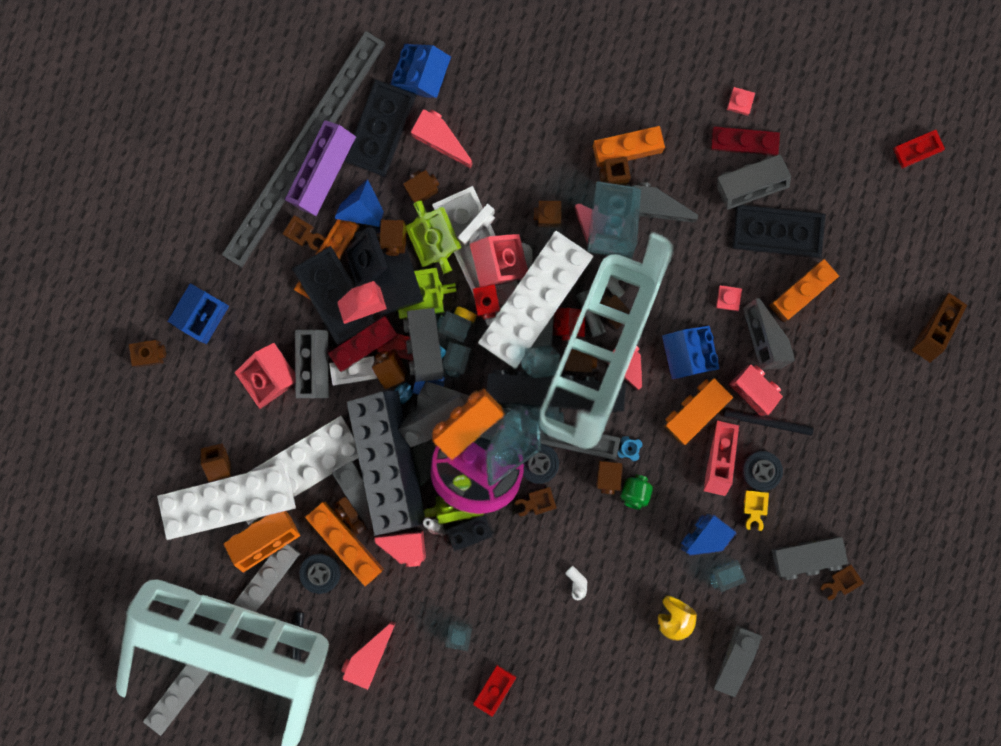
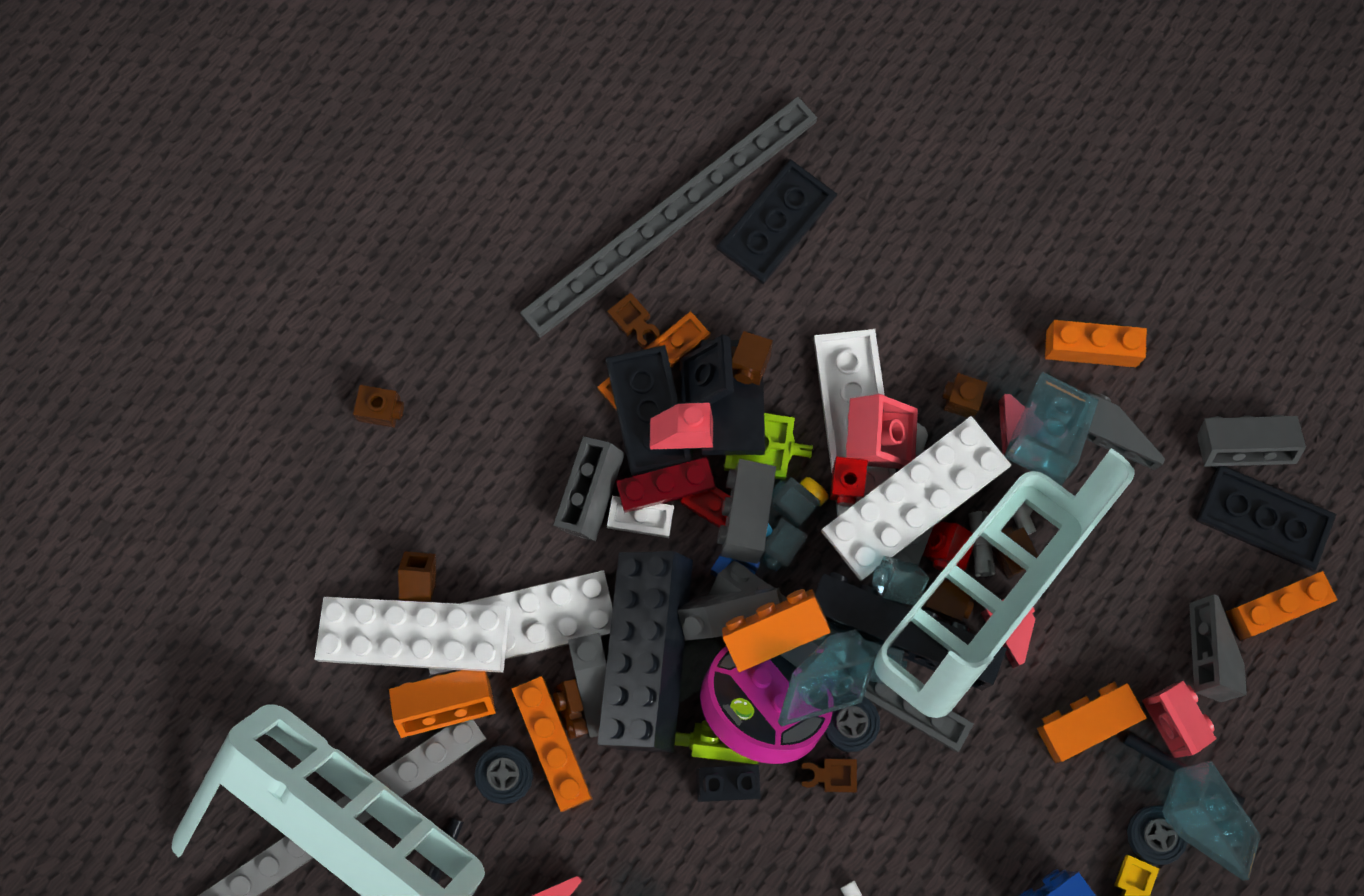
camera: 15 degrees right, 10 degrees down
(198, 314) = (463, 377): blue slope -> none
(266, 375) = (523, 484): coral slope -> none
(320, 168) = (684, 244): medium lavender brick -> none
(361, 207) = (720, 310): blue slope -> none
(389, 368) = (690, 527): reddish brown brick -> none
(404, 547) = (633, 774): coral slope -> none
(405, 392) = (700, 567): dark azure plate -> none
(421, 69) = (853, 165): blue slope -> none
(421, 186) = (807, 309): reddish brown brick -> none
(433, 236) = (803, 376): lime plate -> none
(434, 527) = (683, 760): white bar -> none
(435, 133) = (848, 251): coral slope -> none
(471, 233) = (856, 385): white plate -> none
(609, 477) = (942, 771): reddish brown brick -> none
(615, 171) = (1070, 367): reddish brown brick -> none
(624, 452) = (990, 741): dark azure plate -> none
(636, 492) = (974, 806): green head -> none
(690, 352) = (1103, 638): blue slope -> none
(721, 459) = (1105, 800): coral slope -> none
(728, 298) = (1174, 584): coral plate -> none
(741, 101) = (1259, 334): coral plate -> none
(745, 141) = (1251, 386): dark red plate -> none
(794, 449) = (1212, 818): none -> clear light blue slope

